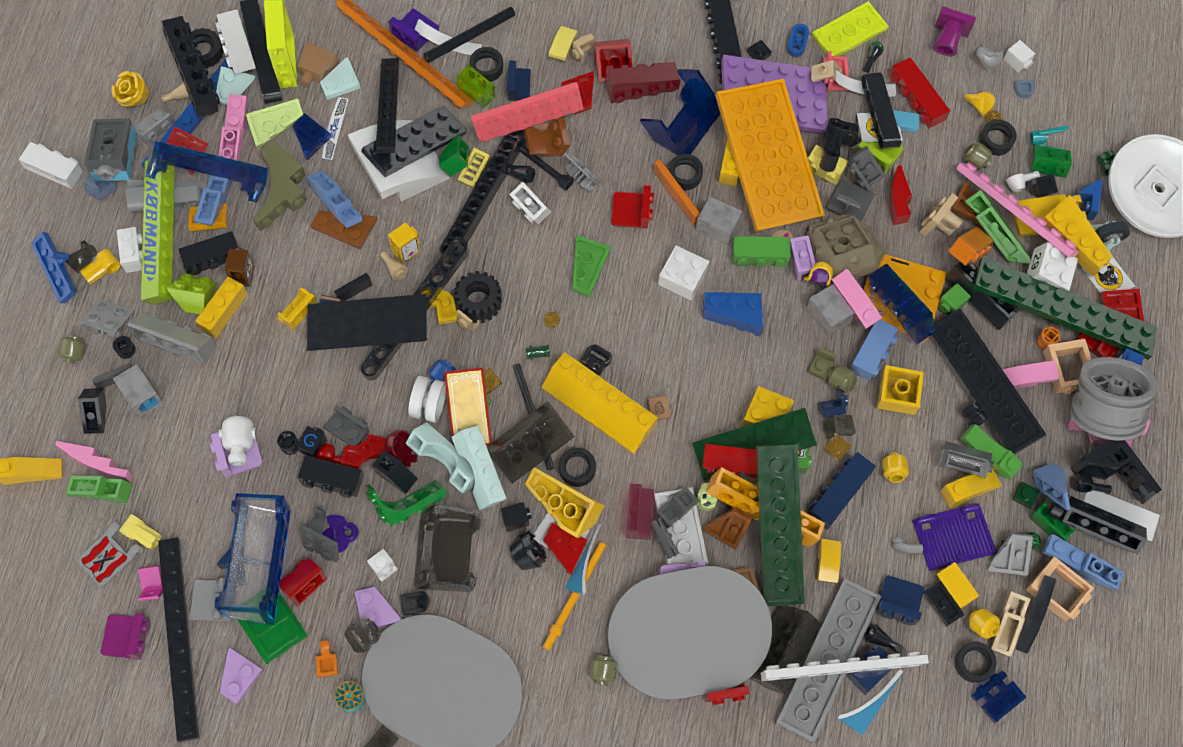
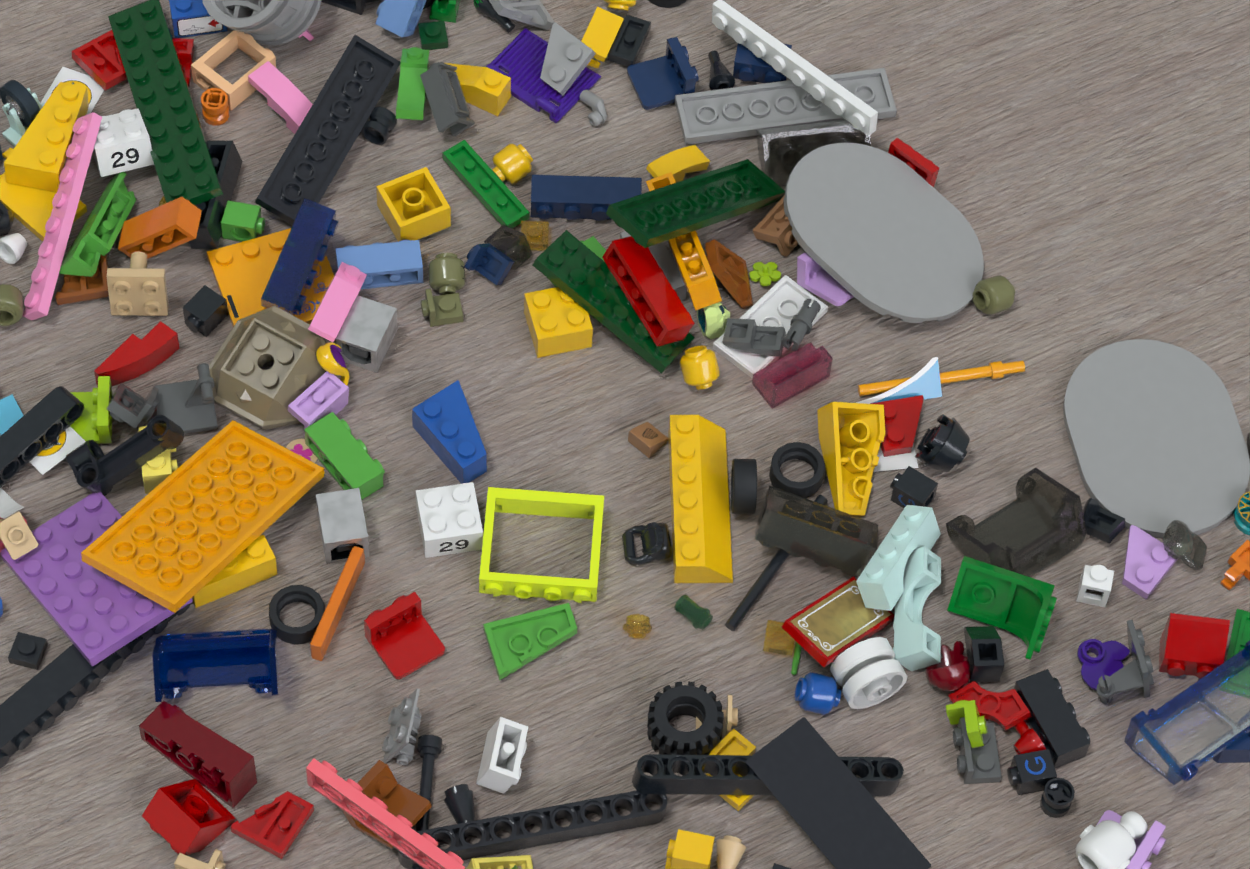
camera: 130 degrees left, 10 degrees down
(358, 428) = (975, 723): none -> lime bracket
(586, 425) = (743, 486): none -> black tyre
(655, 328) = (543, 504): none -> neon yellow window
(679, 462) = (699, 367): none -> yellow head
(719, 555) = (765, 273): none -> lime plant
(862, 717) = (818, 51): dark azure sticker -> none
(889, 443) = (485, 185): none -> green plate
(905, 245) = (205, 311): none -> black brick
(952, 548) = (564, 59): none -> light grey wing

